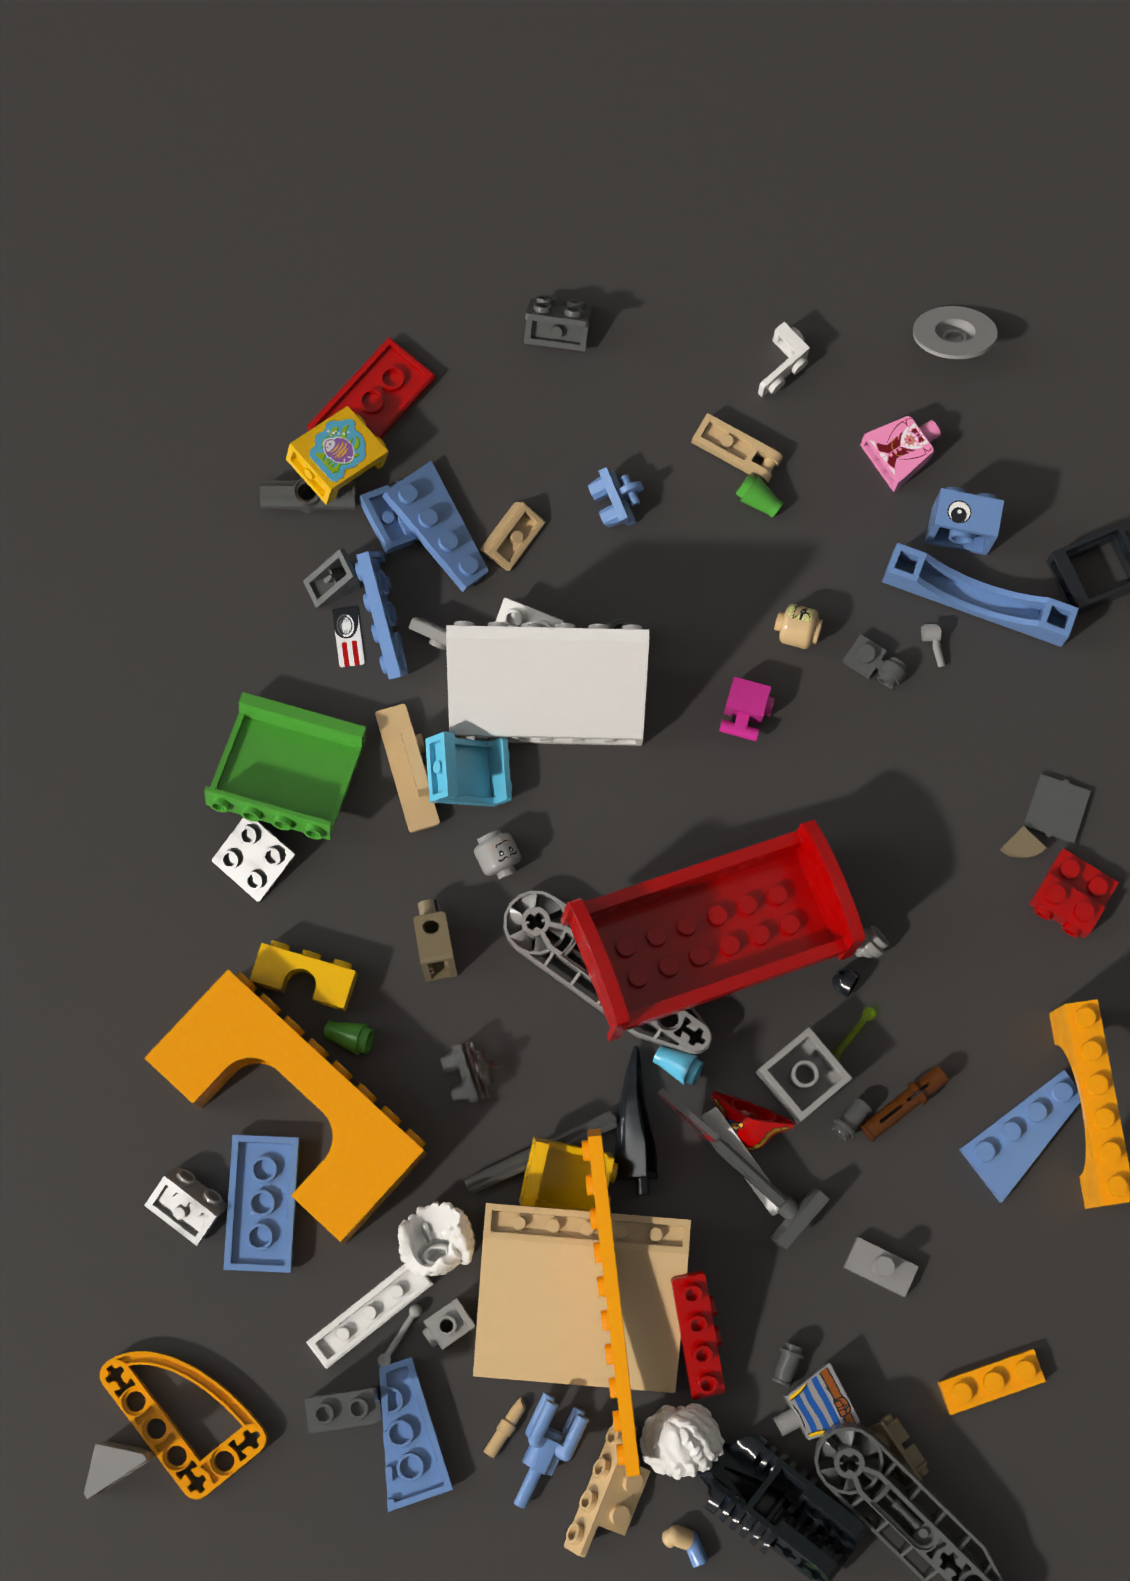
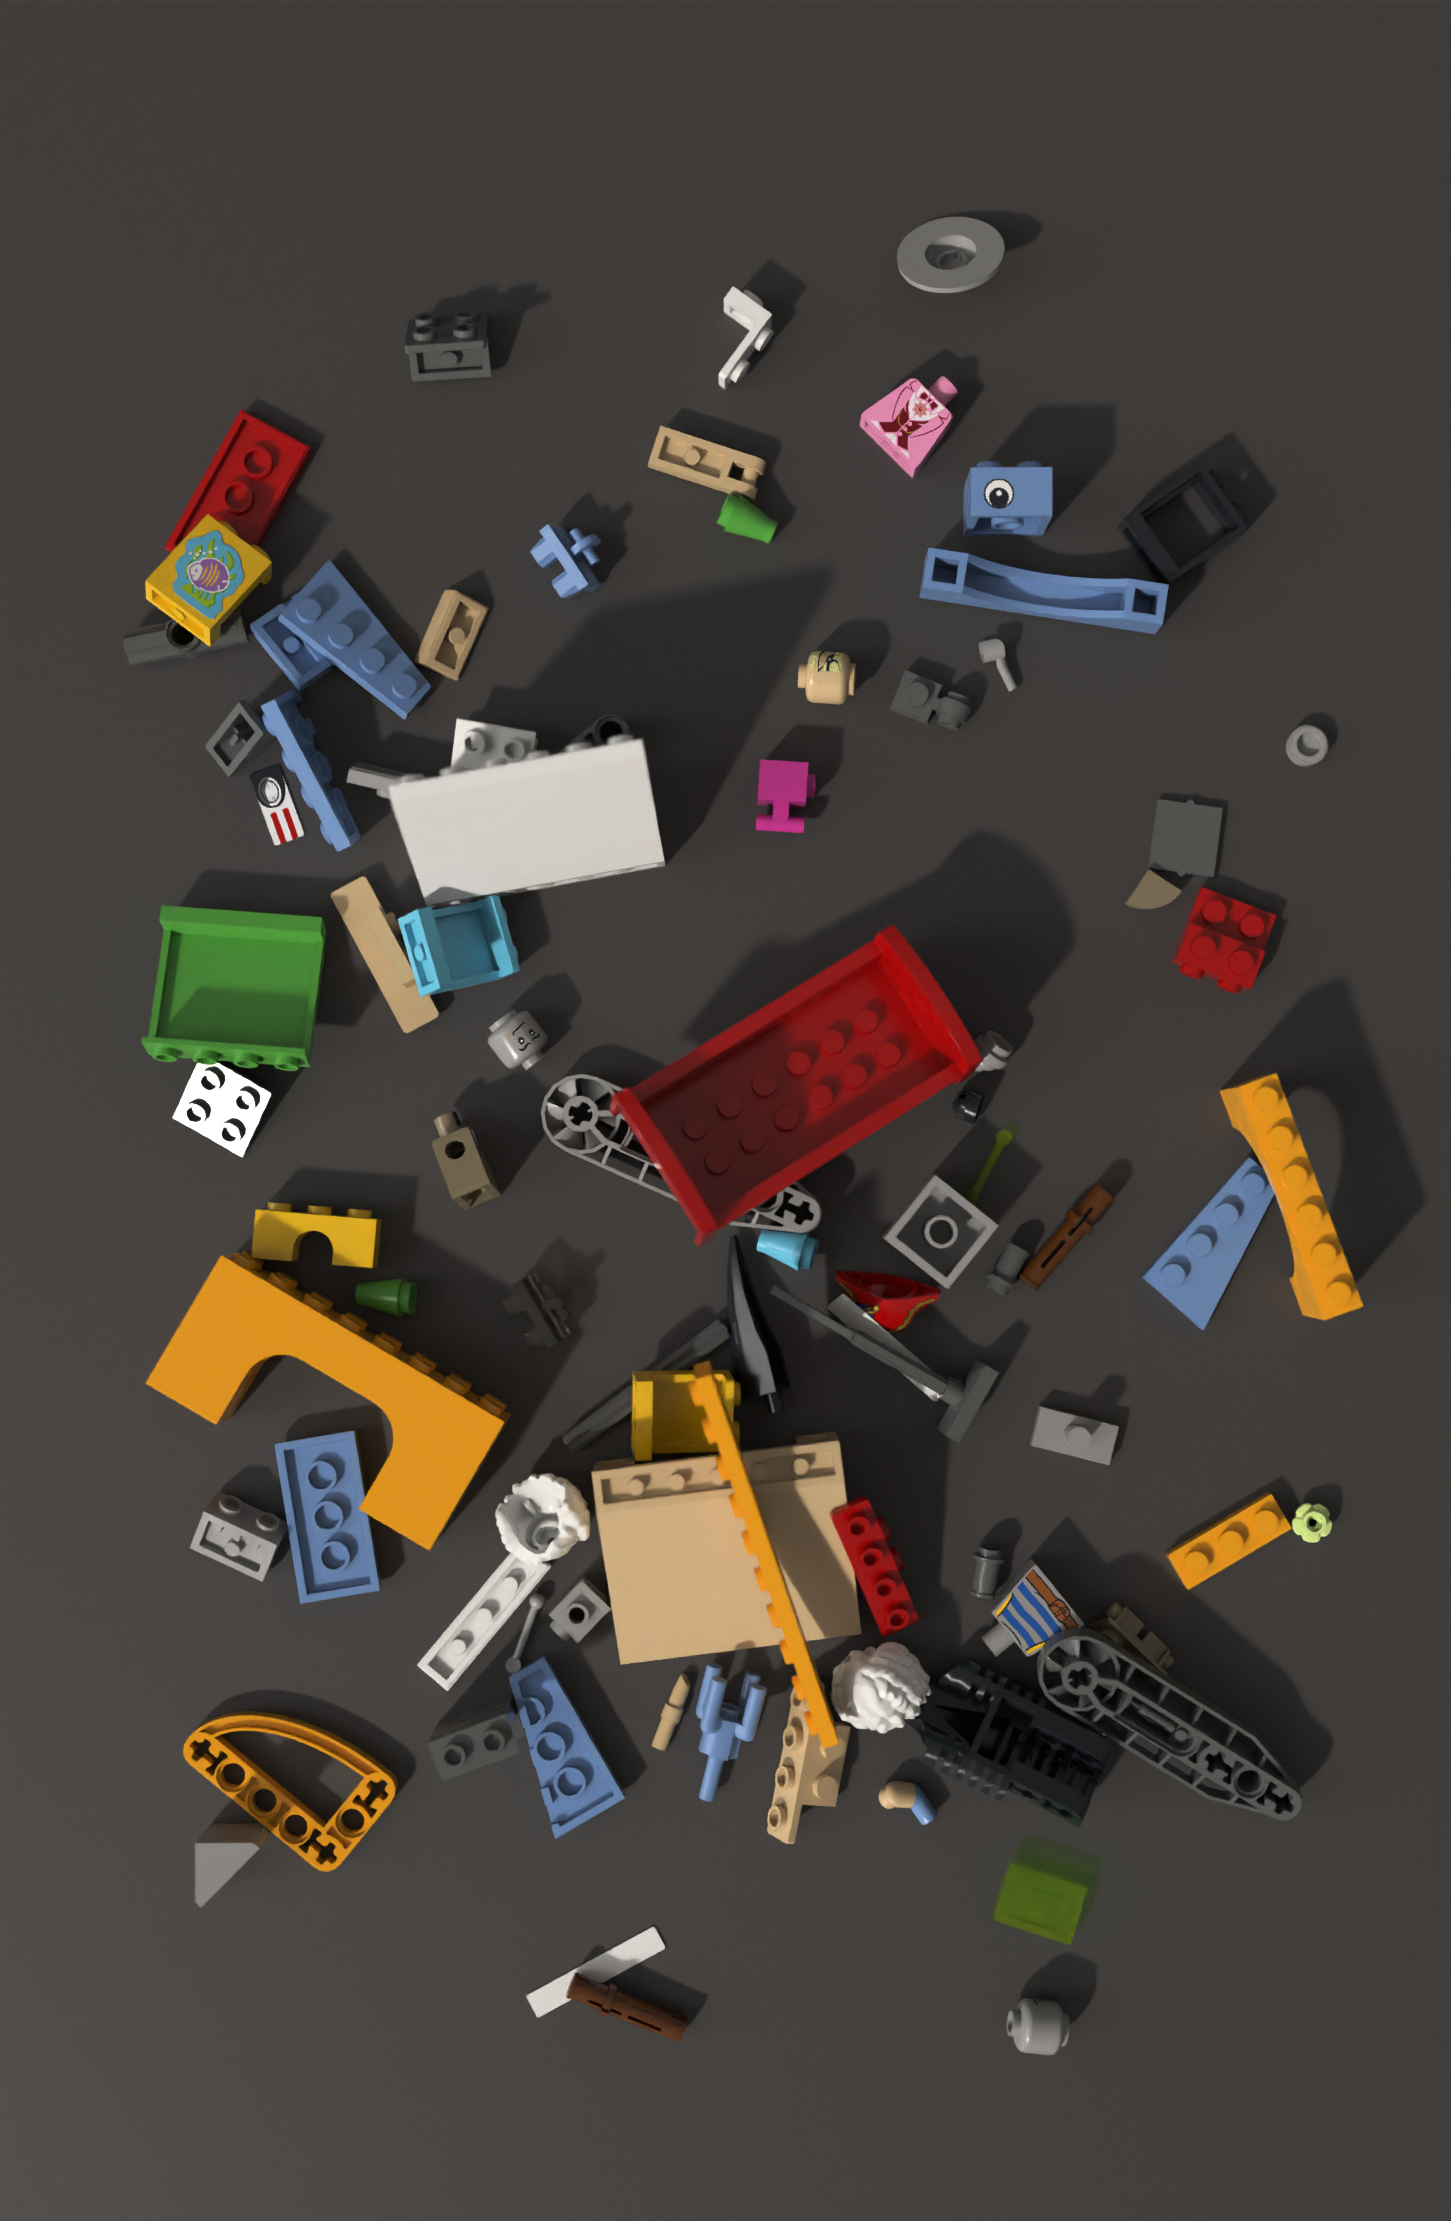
camera: 10 degrees left, 10 degrees up
(1054, 1380) = (1301, 1522): none -> yellowish green plate

